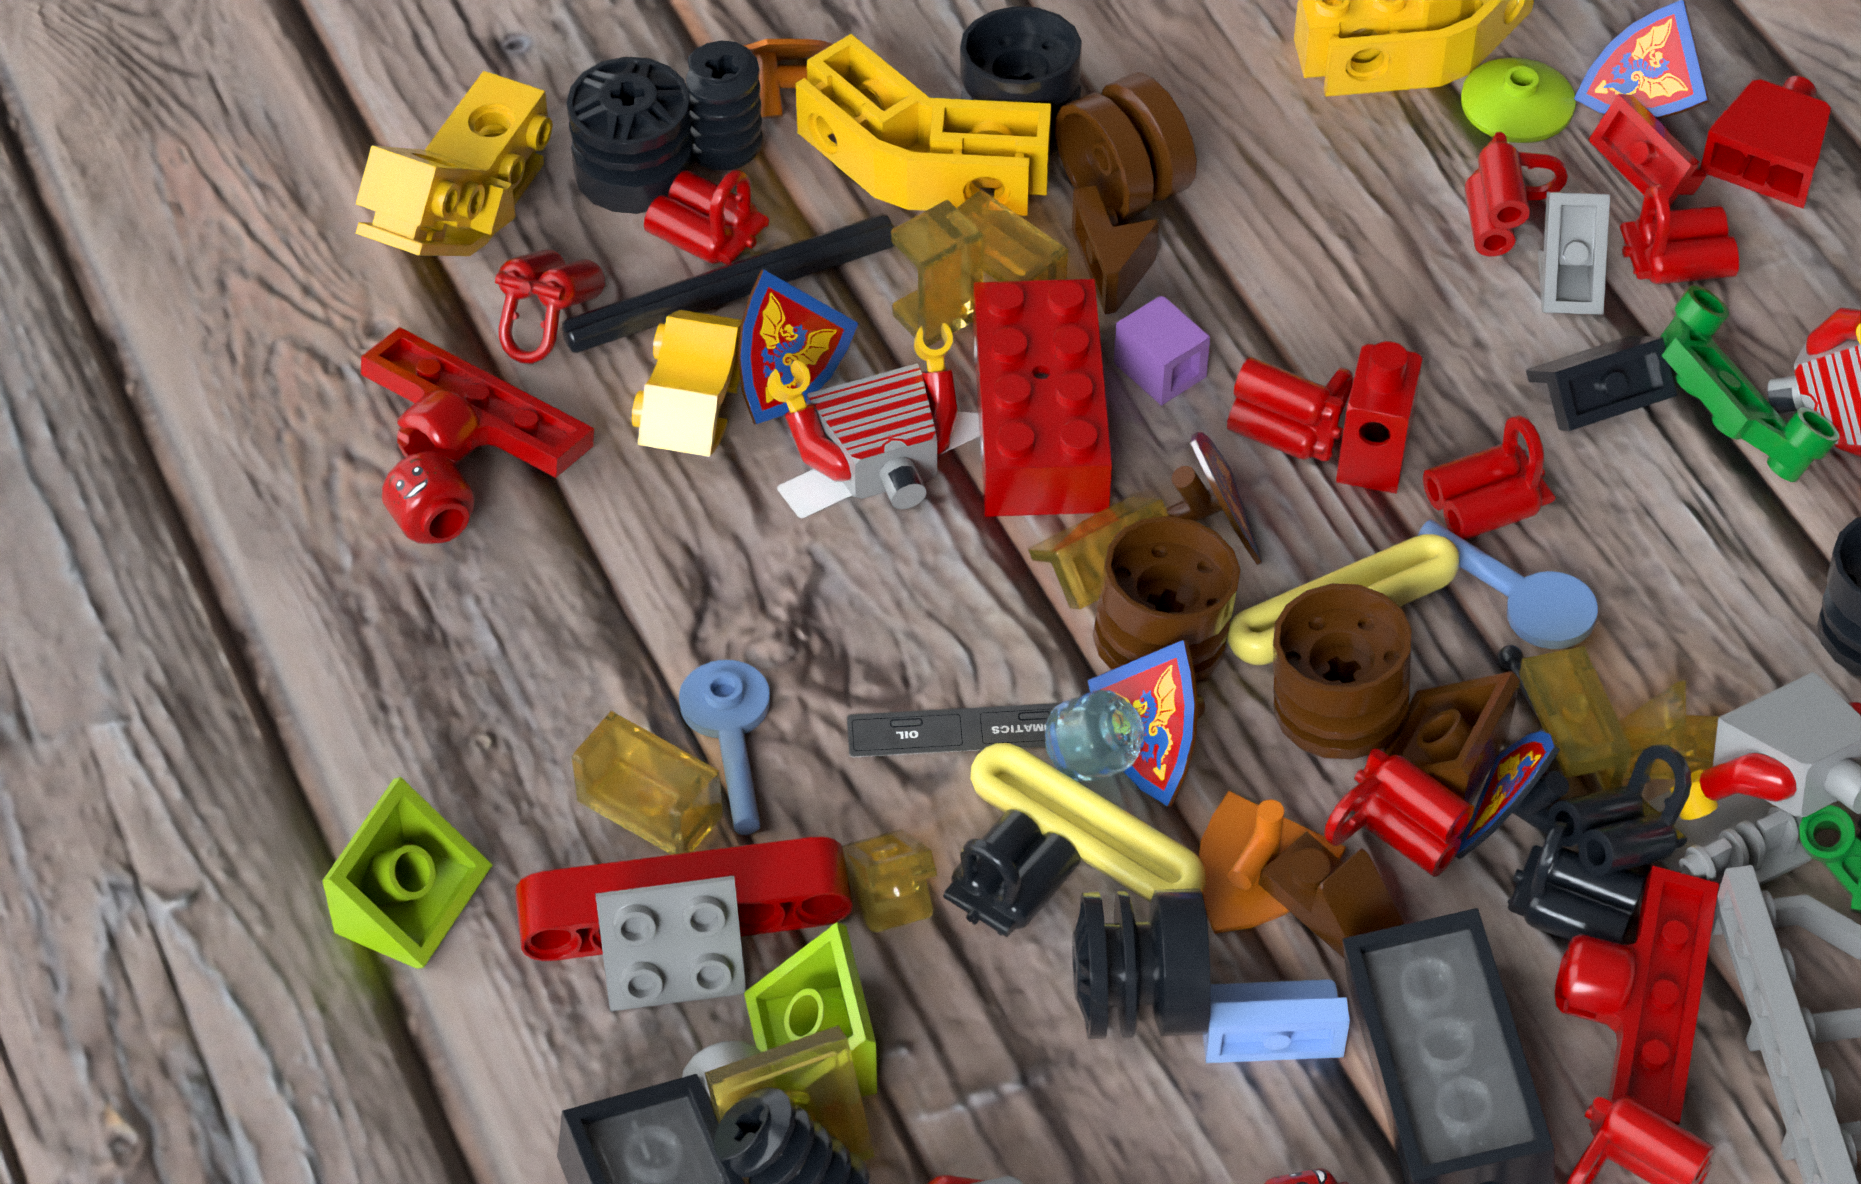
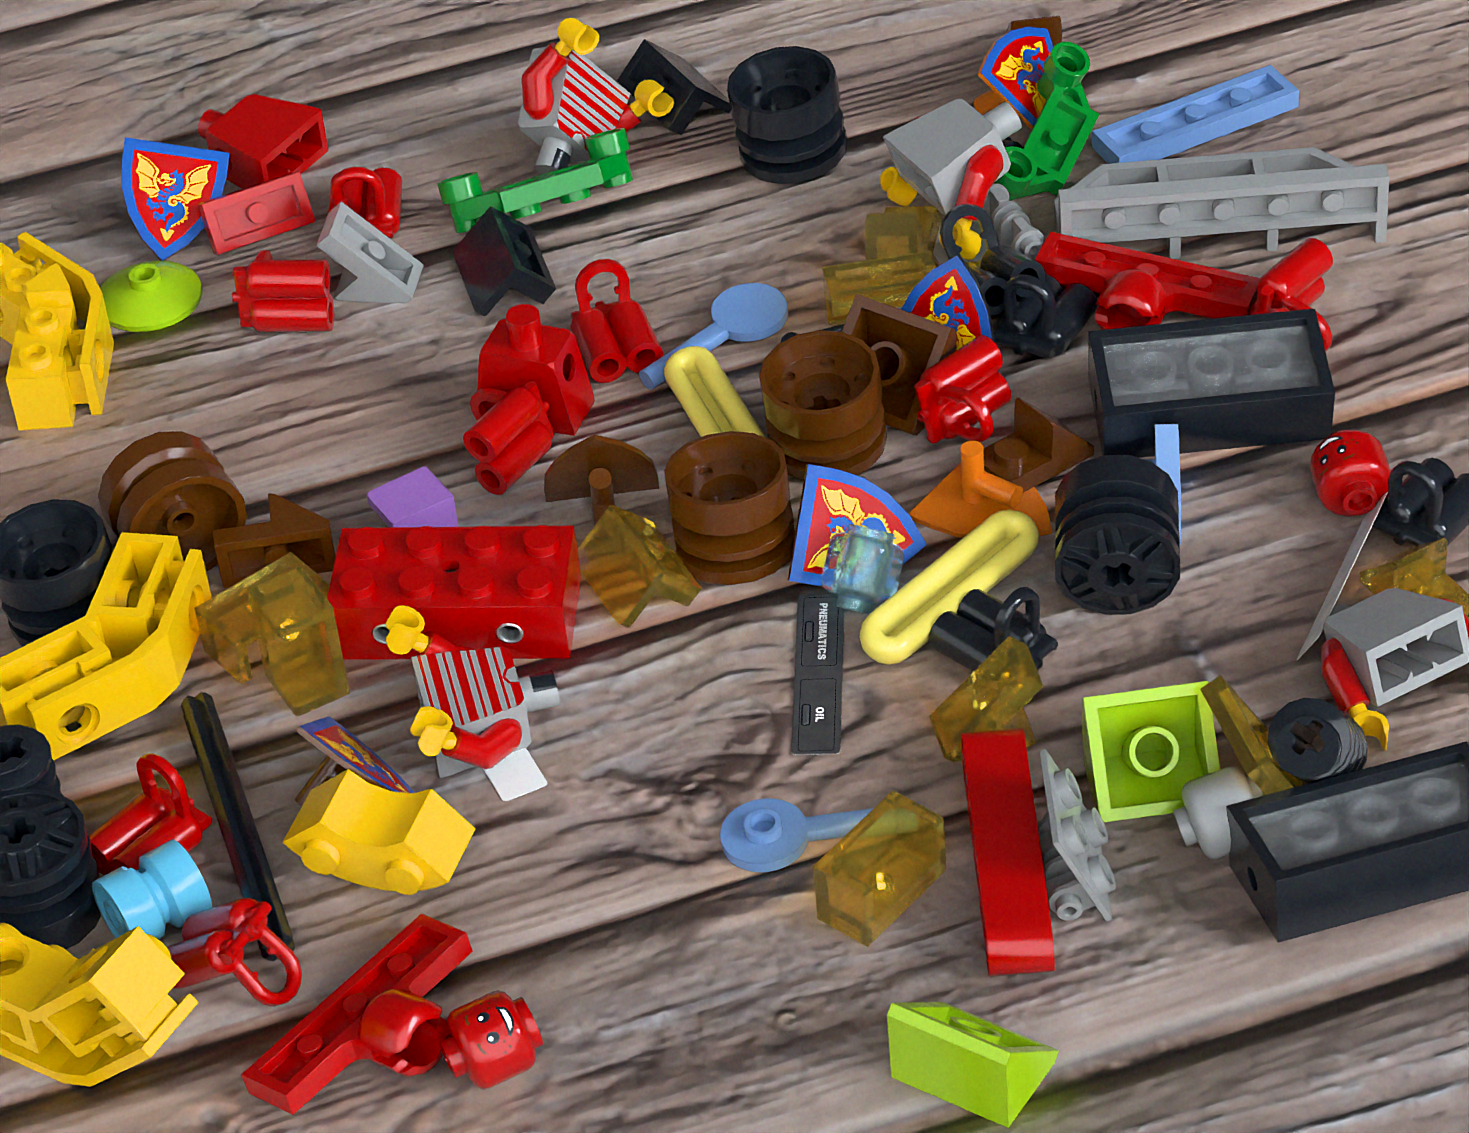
camera: 80 degrees left, 10 degrees down
(613, 228) = (158, 893): none -> medium azure wheel

